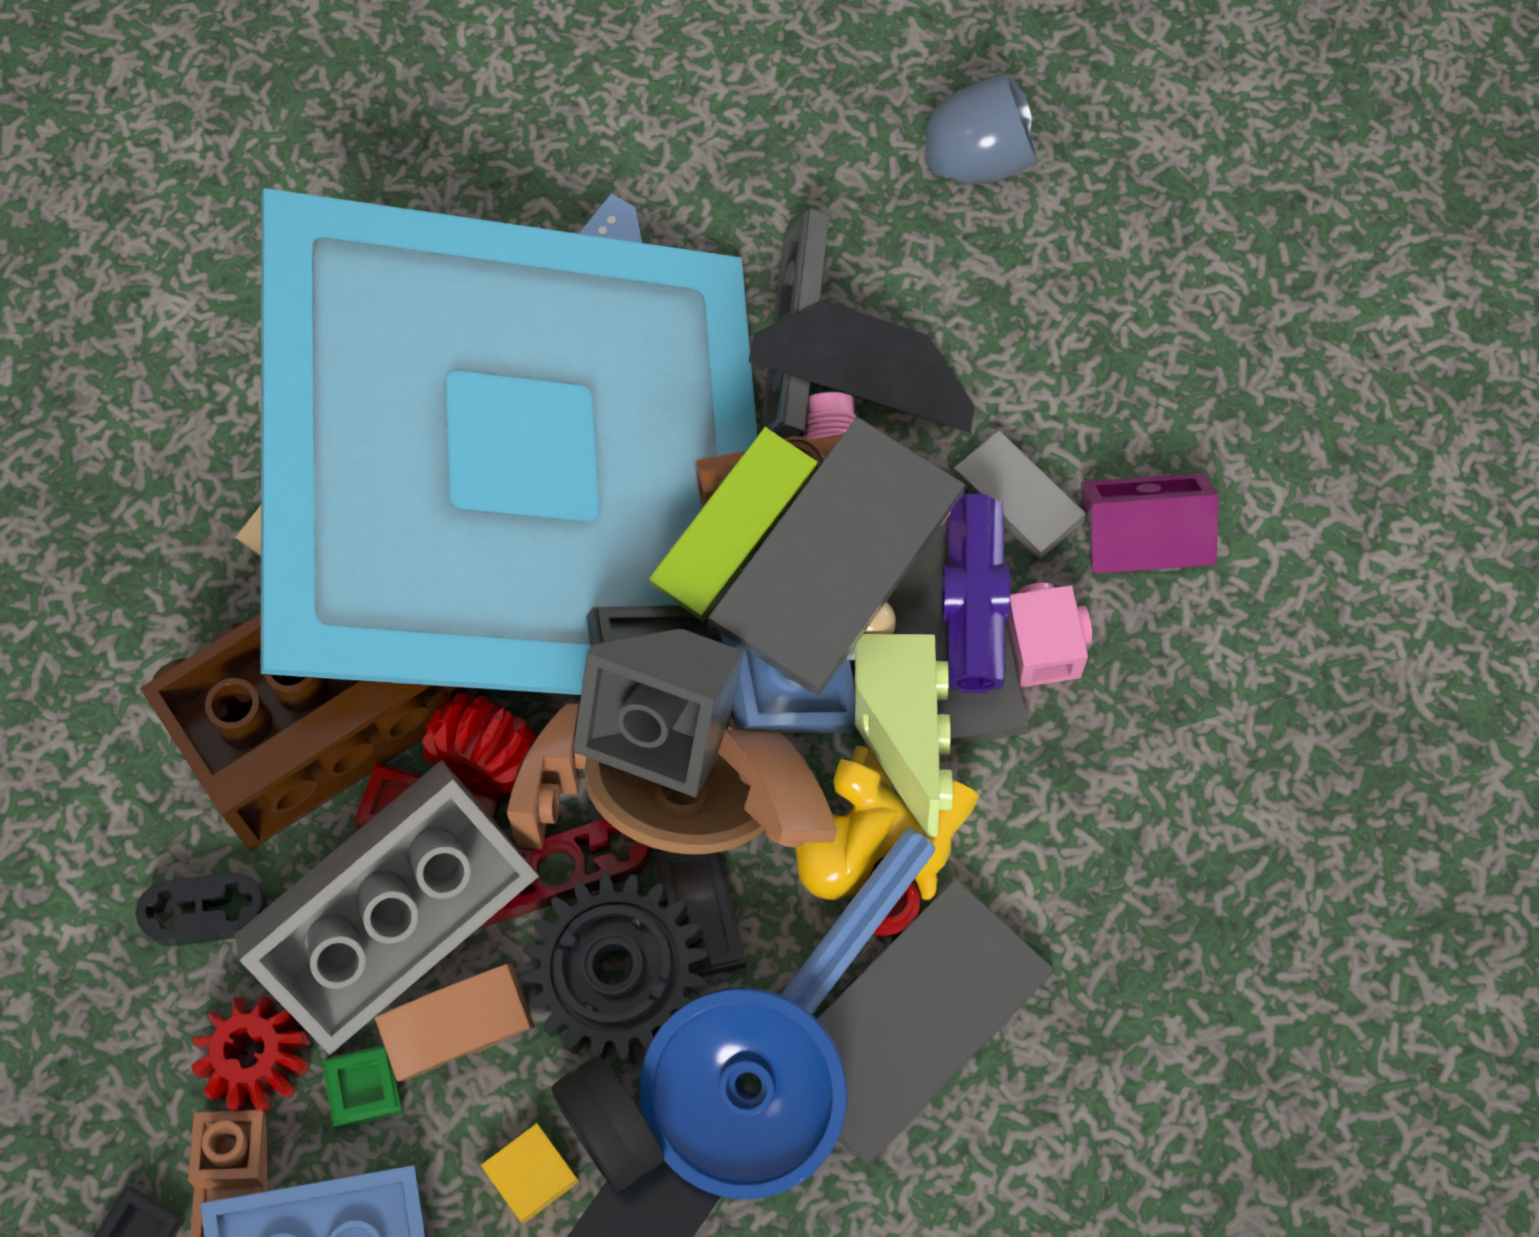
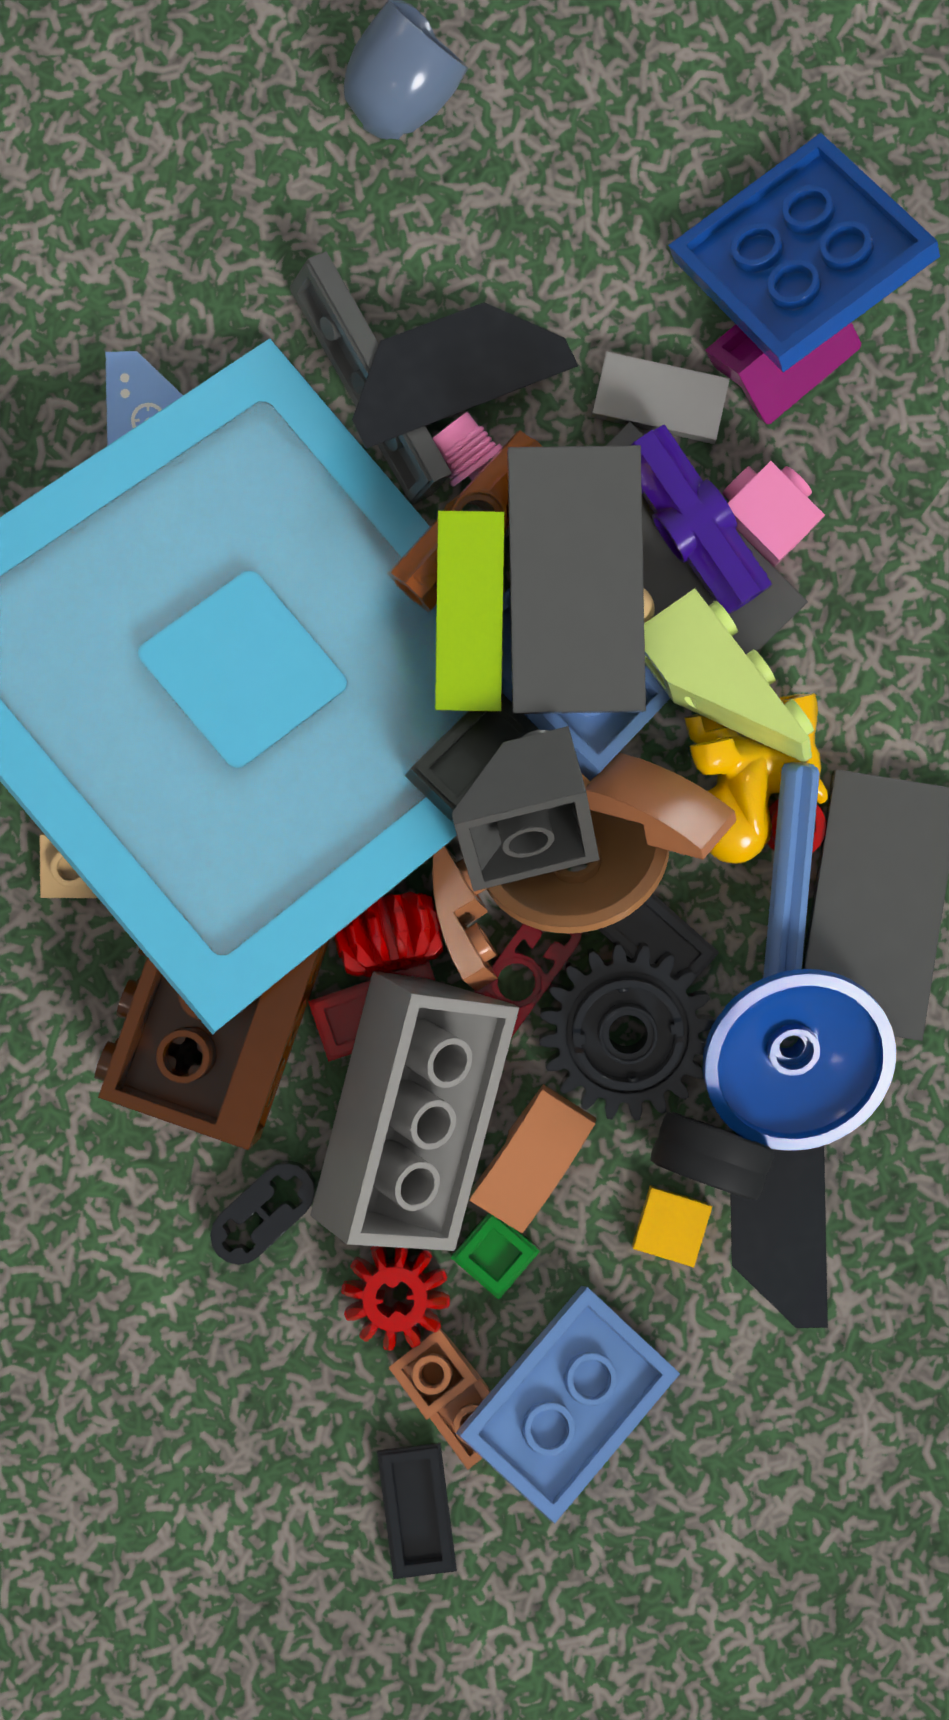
camera: 30 degrees left, 20 degrees up
(1212, 449) = (804, 251): none -> blue plate

